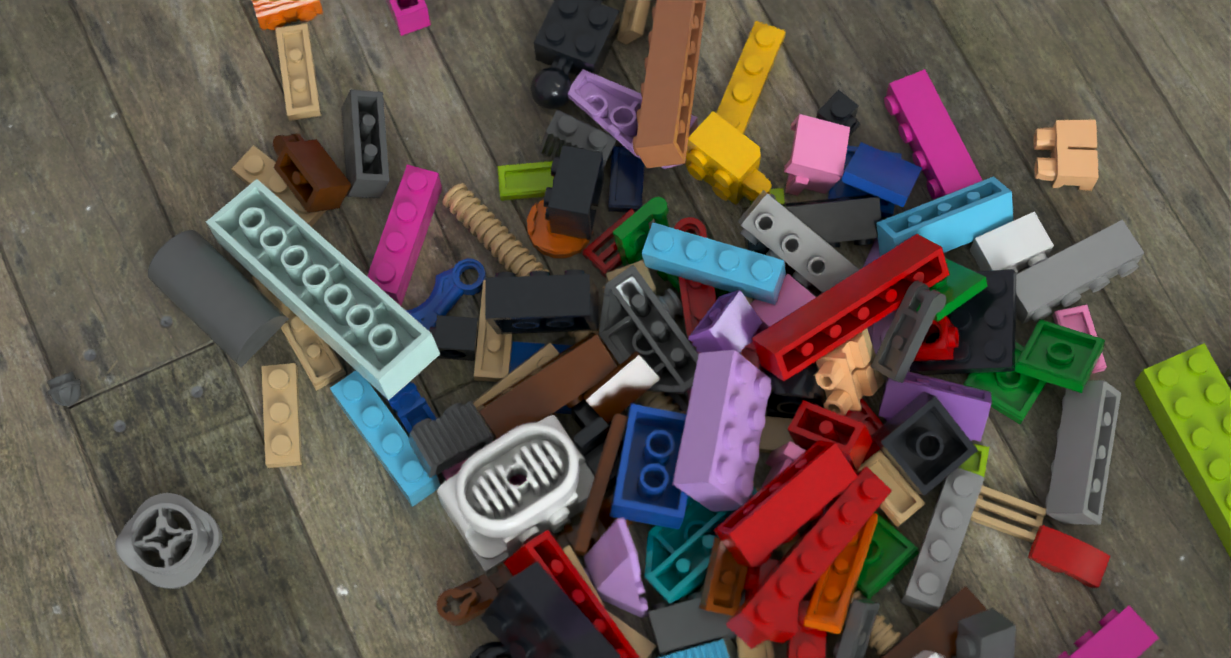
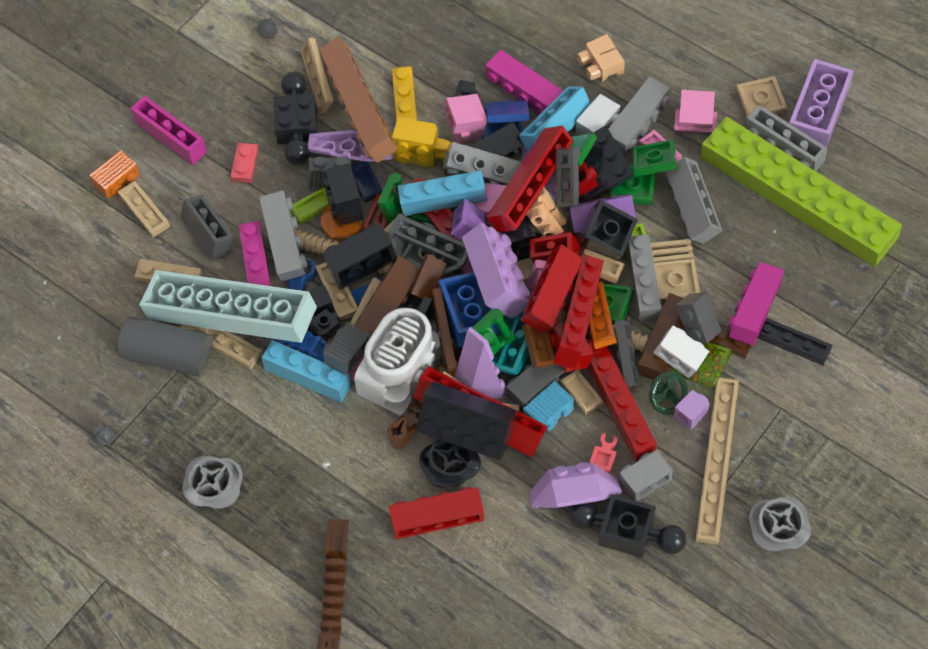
camera: 25 degrees left, 10 degrees down
(281, 415) = (238, 390): tan plate -> none
(310, 173) = (183, 255): reddish brown brick -> none
(443, 389) = (327, 330): none -> black brick
(458, 213) = (282, 235): none -> light grey brick
(473, 67) = (244, 163): none -> coral plate
(651, 533) = (484, 328): none -> green plate
(991, 564) = (677, 278): none -> tan tile
(1069, 556) = (715, 255): red slope -> none
(1163, 311) = (696, 112): none -> bright pink plate

